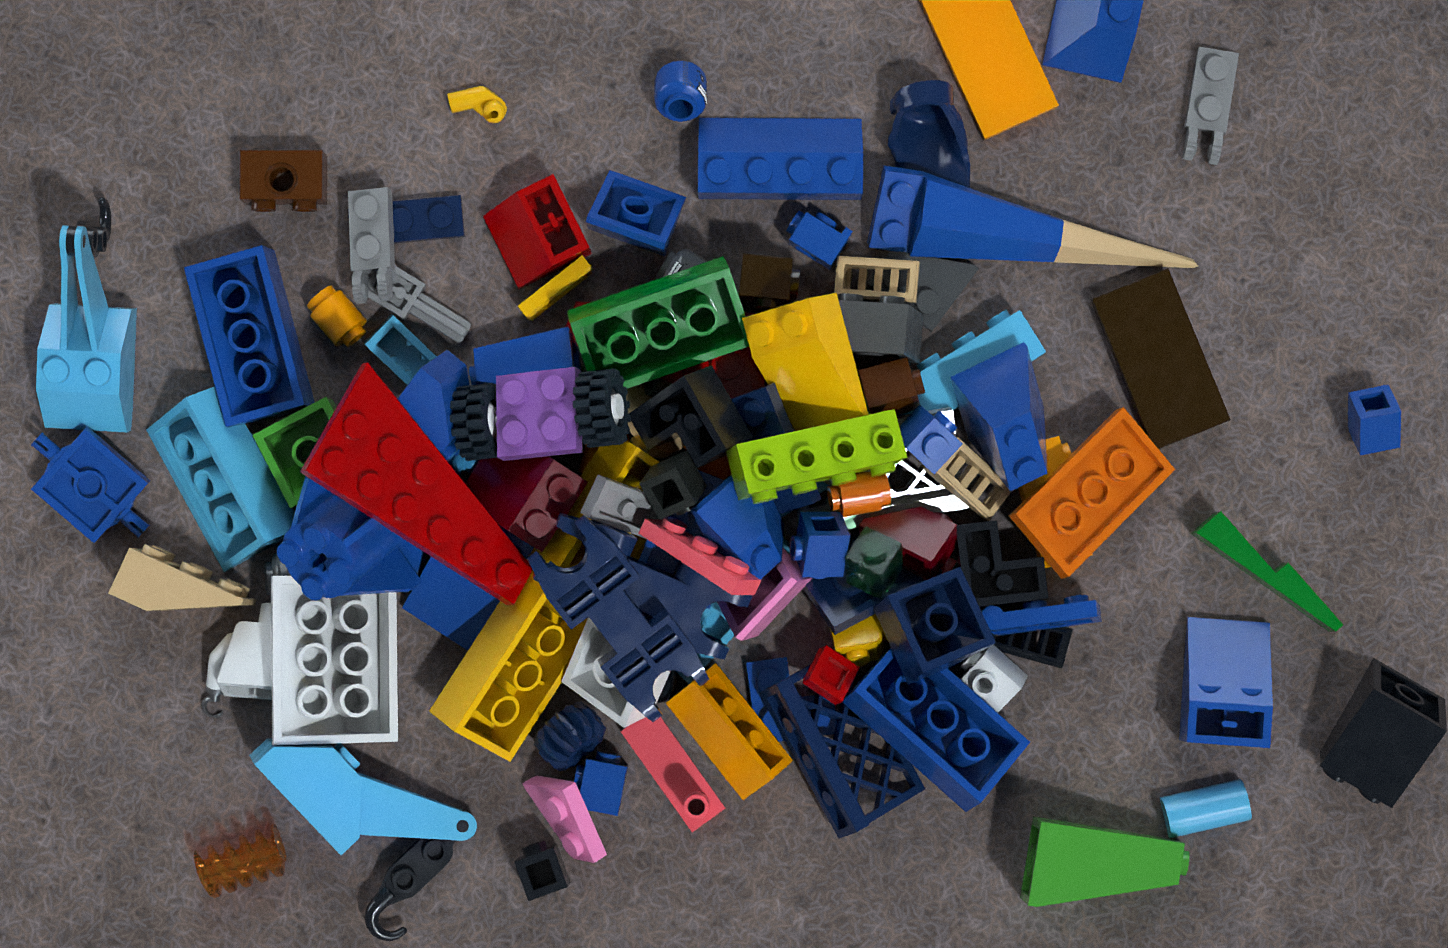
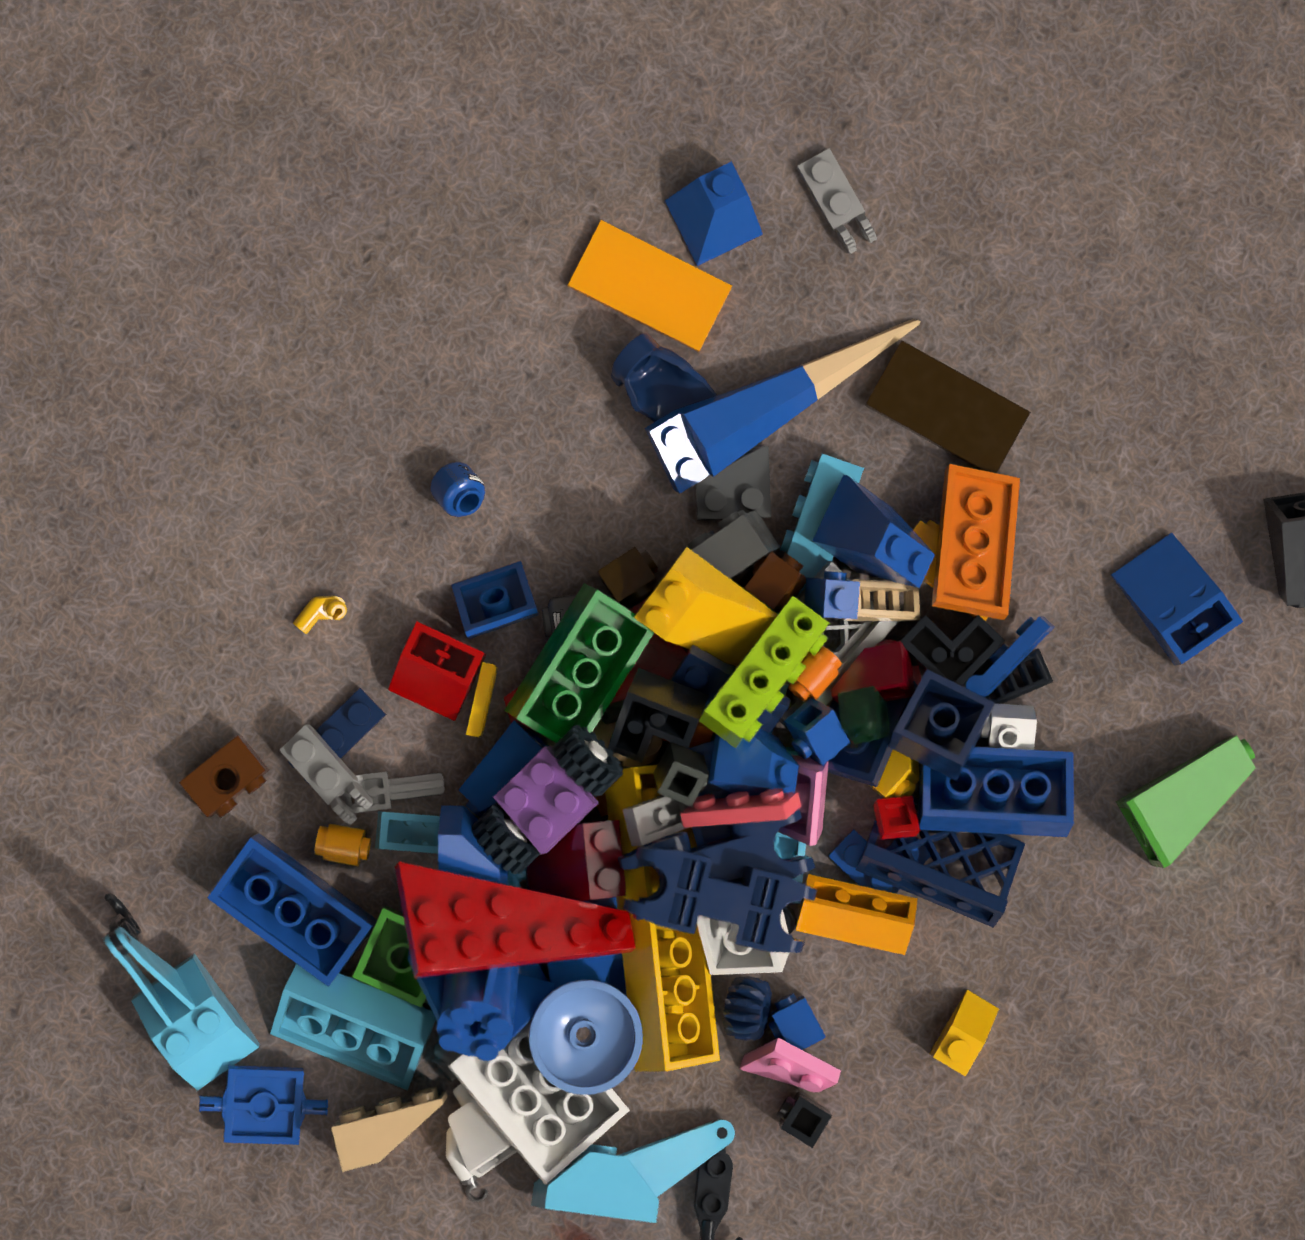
camera: 45 degrees left, 0 degrees up
(405, 676) = (601, 1058): none -> medium blue dish
(673, 771) = (840, 974): coral piece -> none
(741, 910) = (965, 1033): none -> yellow slope
(780, 159) = (566, 480): blue slope -> none
(817, 237) = (637, 515): blue brick -> none
(844, 274) = (678, 528): tan slope -> none
(1206, 808) = (1231, 698): medium azure brick -> none
(1284, 580) = (1157, 495): green slope -> none
(1380, 426) = (1130, 332): blue brick -> none

